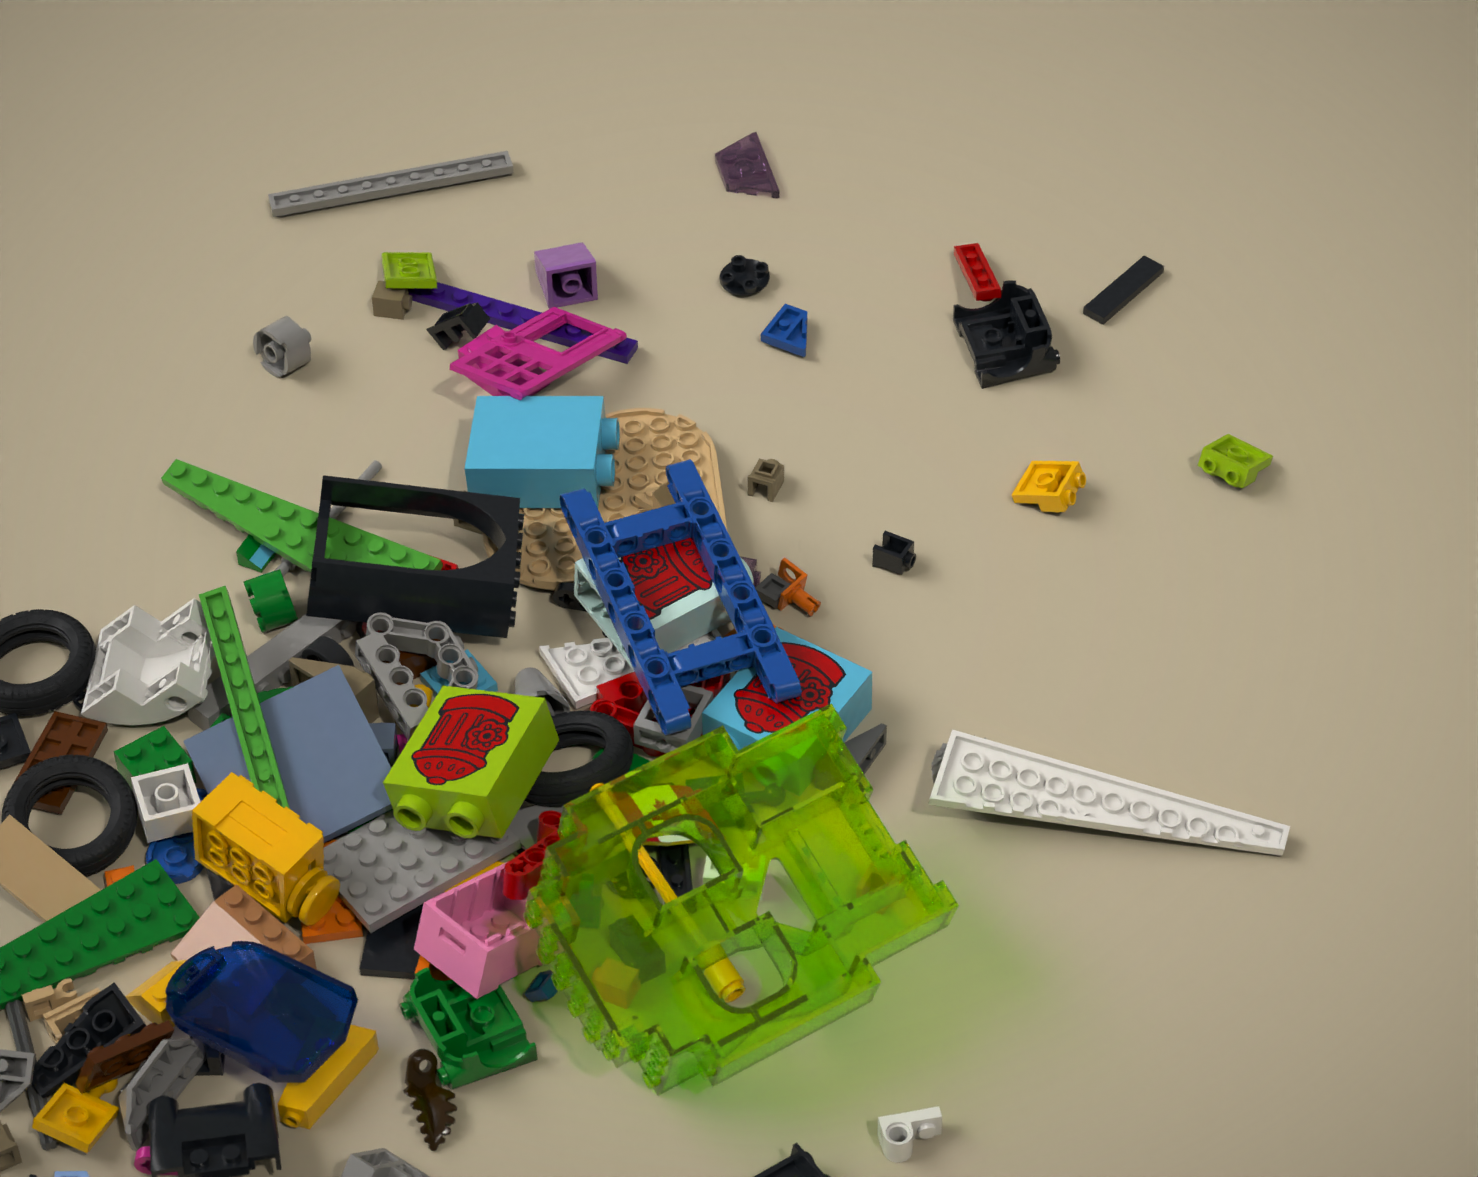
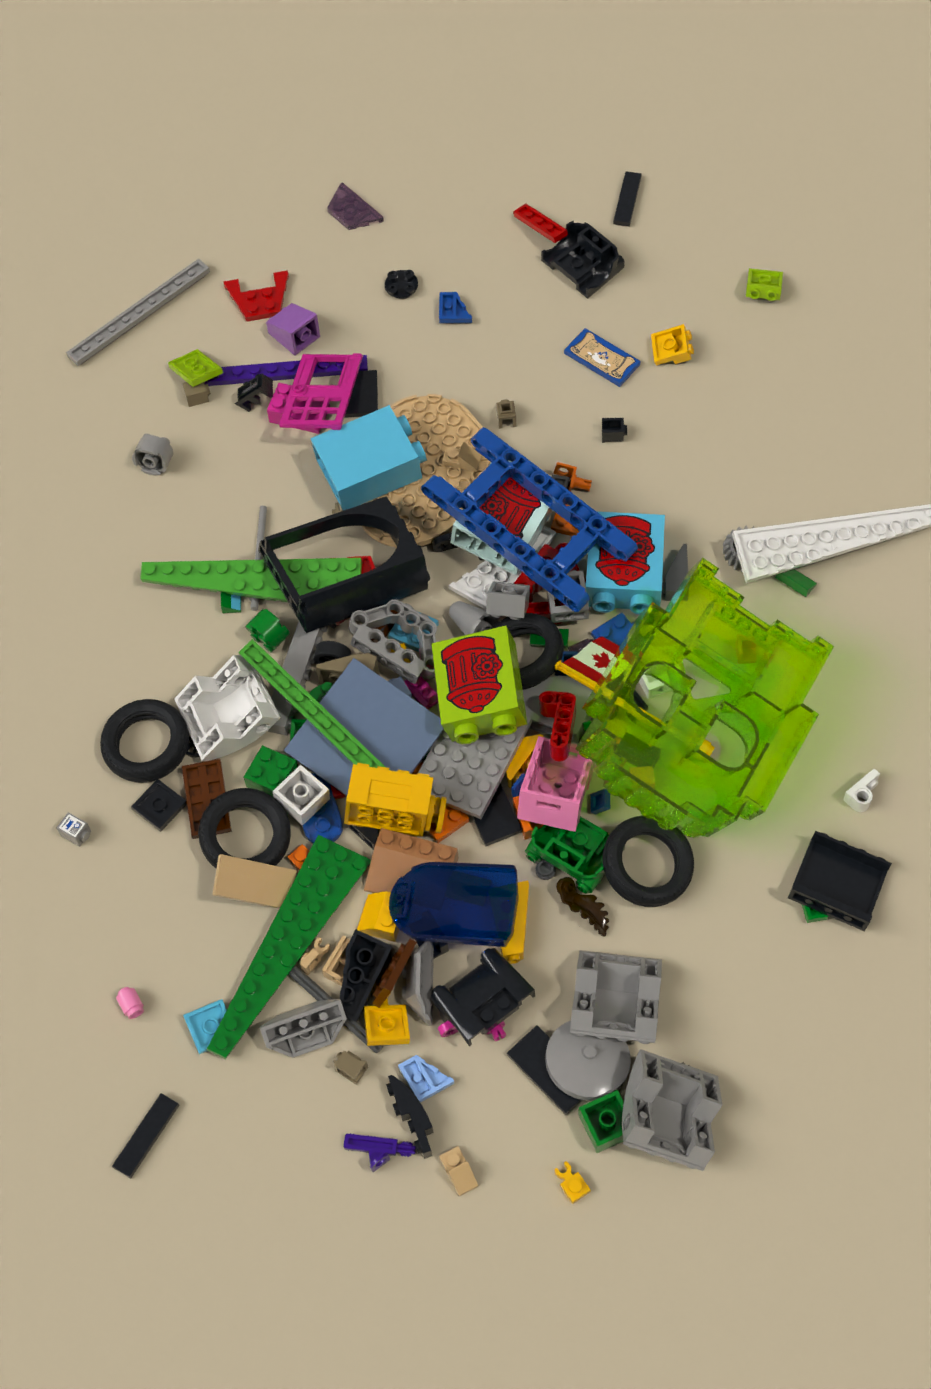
camera: 25 degrees left, 15 degrees up
(412, 1035) = (545, 870): none -> dark grey plate
(533, 1128) = (625, 885): none -> black tyre
(548, 230) = (260, 302): none -> red wing
(587, 684) = (507, 600): none -> light grey brick
(601, 376) = (364, 394): none -> black tile
(947, 464) = (602, 357): none -> tile
(1011, 838) = (797, 581): none -> green slope

